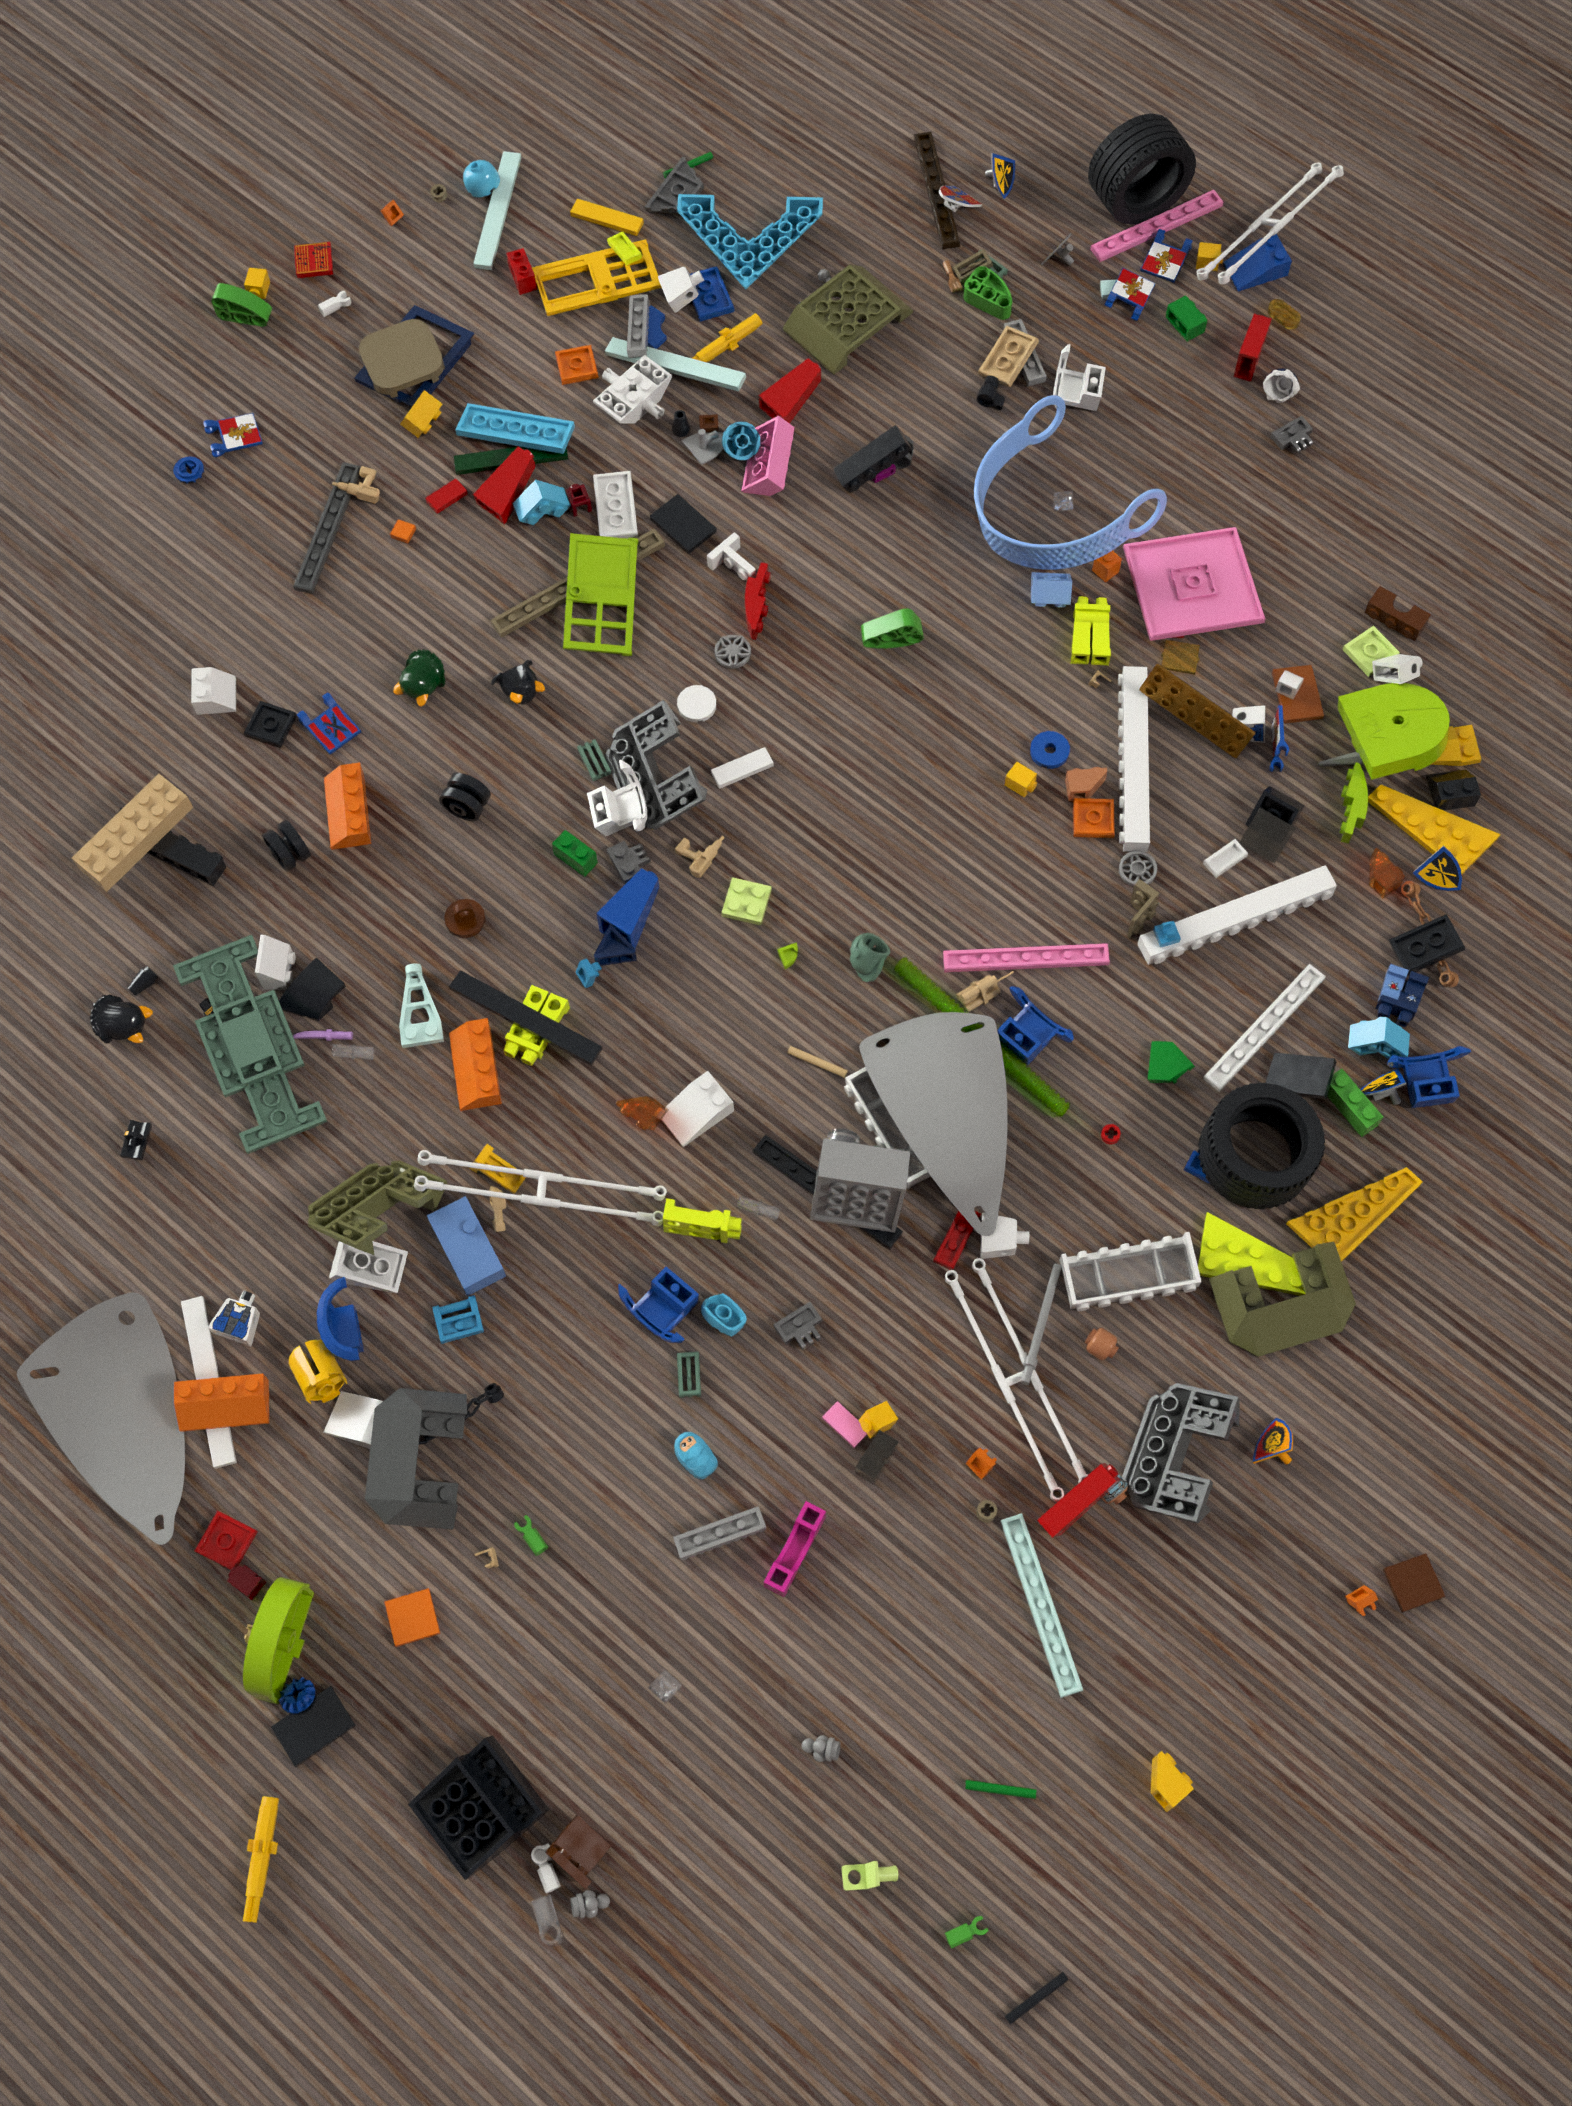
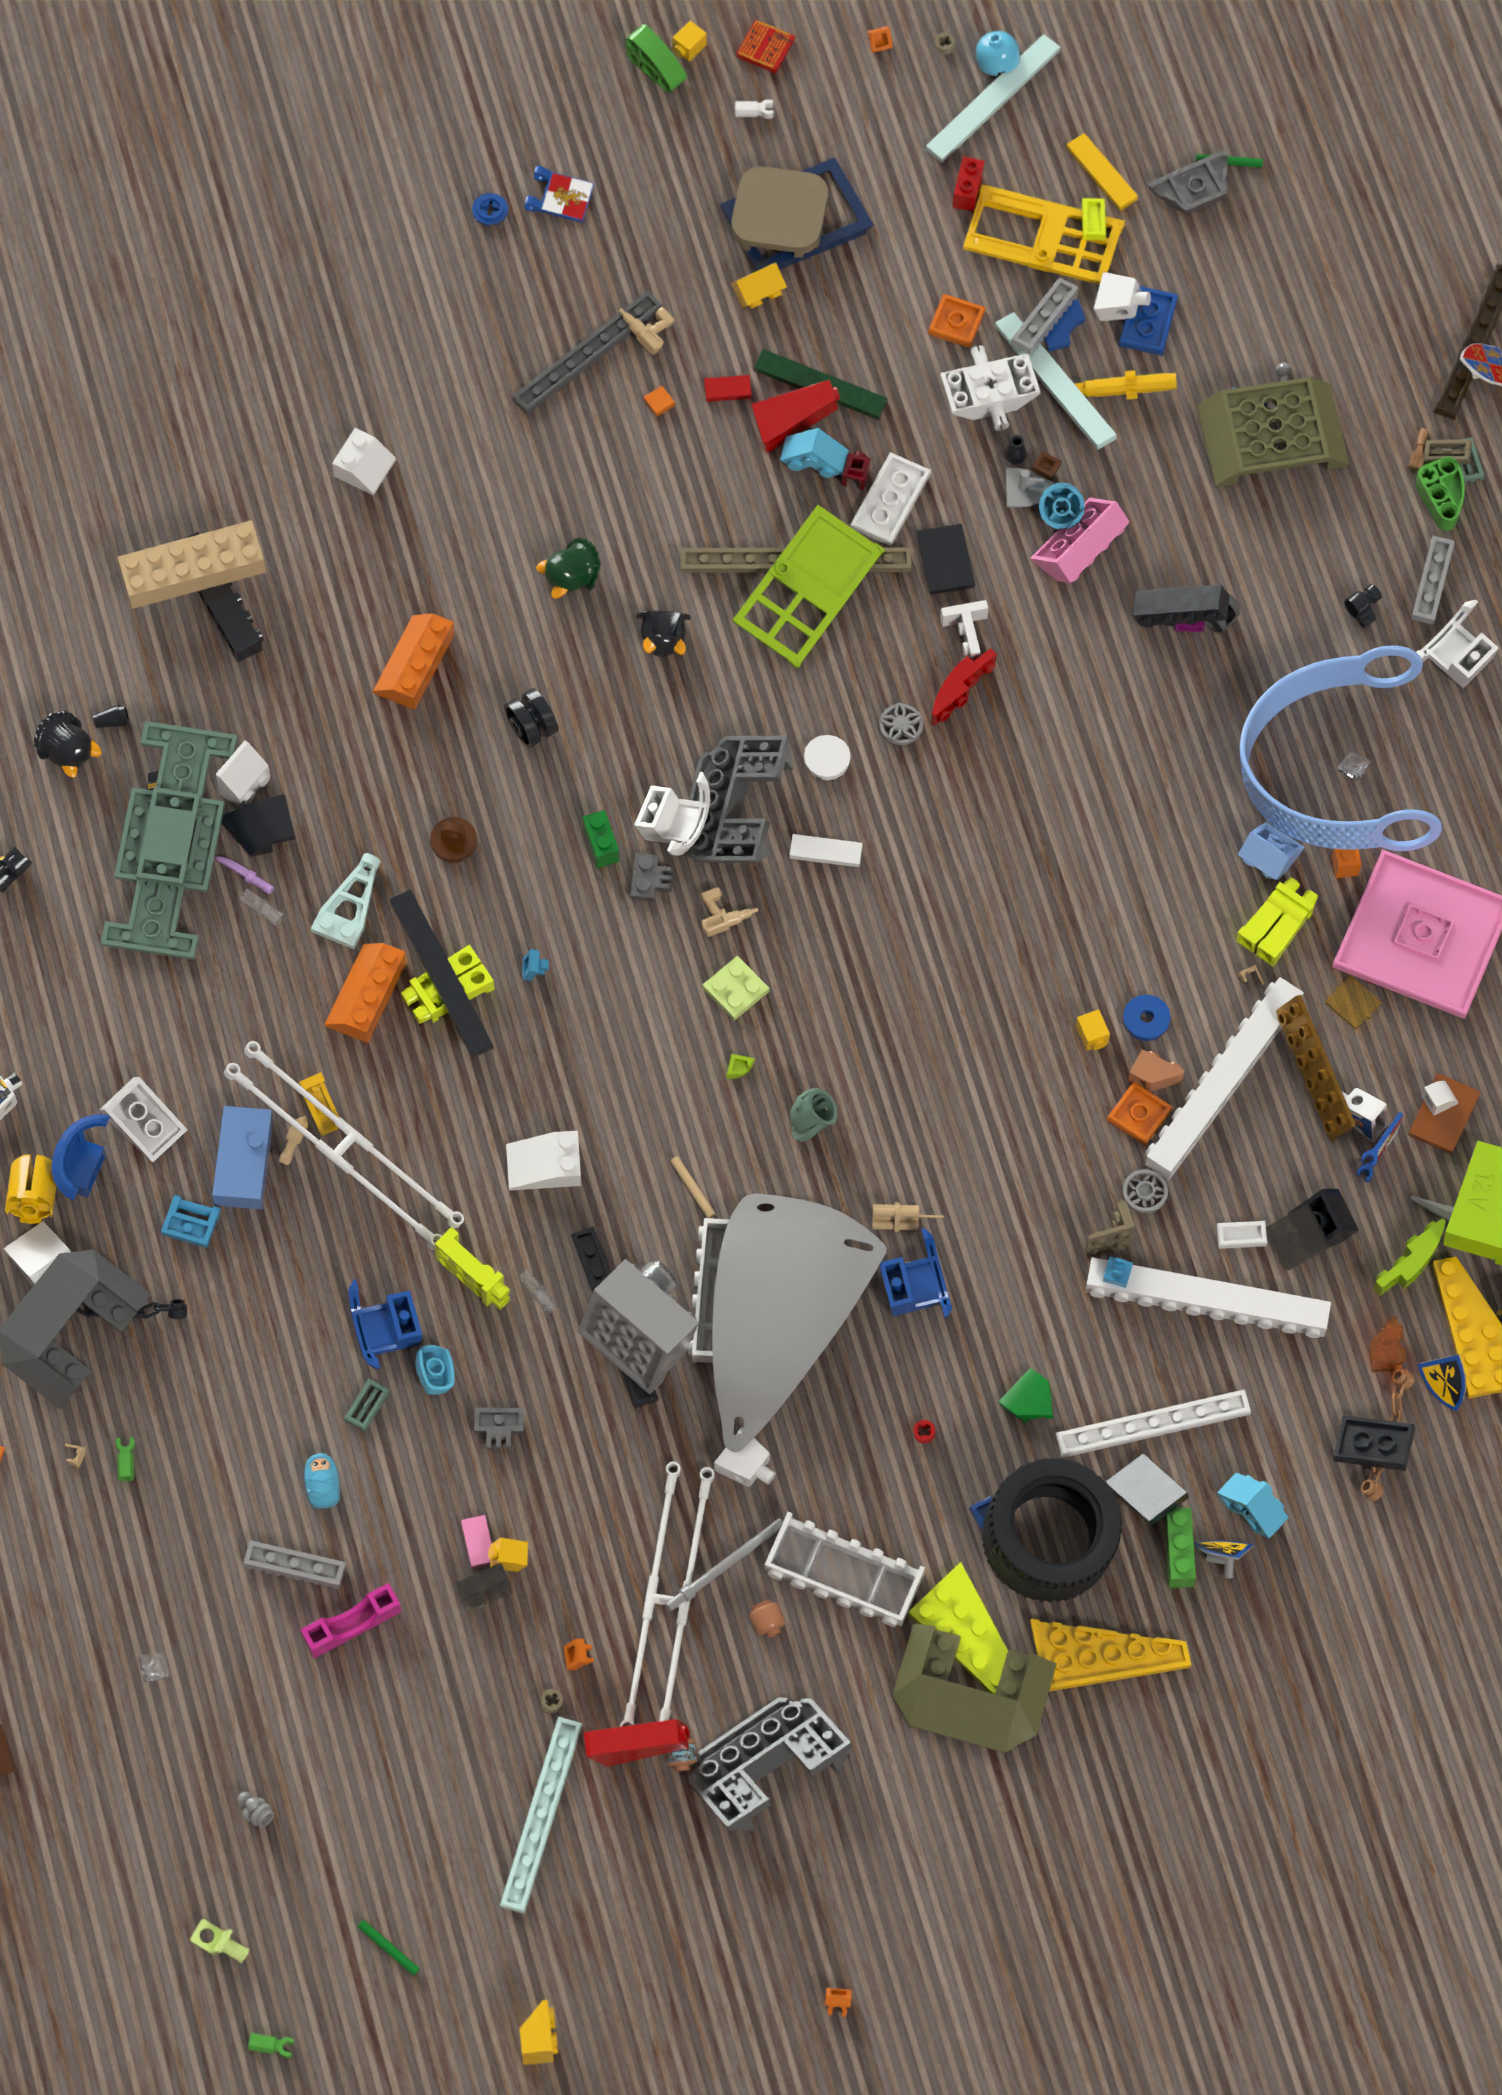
camera: 30 degrees right, 0 degrees up
(270, 724) = (397, 529): black tile -> none
(285, 845) = (327, 665): black wheel -> none
(331, 727) = (454, 567): blue flag -> none
(352, 1207) = (157, 1055): olive slope -> none
(515, 428) = (843, 356): medium azure plate -> none
(587, 746) = (688, 737): sand green tile -> none
(614, 949) = (571, 957): dark blue slope -> none
(630, 906) = (615, 926): blue slope -> none
(644, 1110) = (493, 1132): clear orange slope -> none
(753, 257) = (1212, 307): medium azure wedge -> none
(791, 391) = (1155, 481): red slope -> none
(893, 630) = (1074, 799): bright green beam -> none
(954, 1242) = (700, 1439): red tile -> none
(1008, 355) = (1410, 574): tan tile -> none
(1010, 1061) = (874, 1294): clear neon green piece -> none
(1026, 958) = (968, 1211): bright pink tile -> none
(1273, 1442) = (861, 1811): shield -> none
(1398, 1002) = (1310, 1476): dark blue hips -> none
(1414, 1583) = (899, 2017): reddish brown tile -> none
(1429, 1077) = (1274, 1569): blue piece -> none

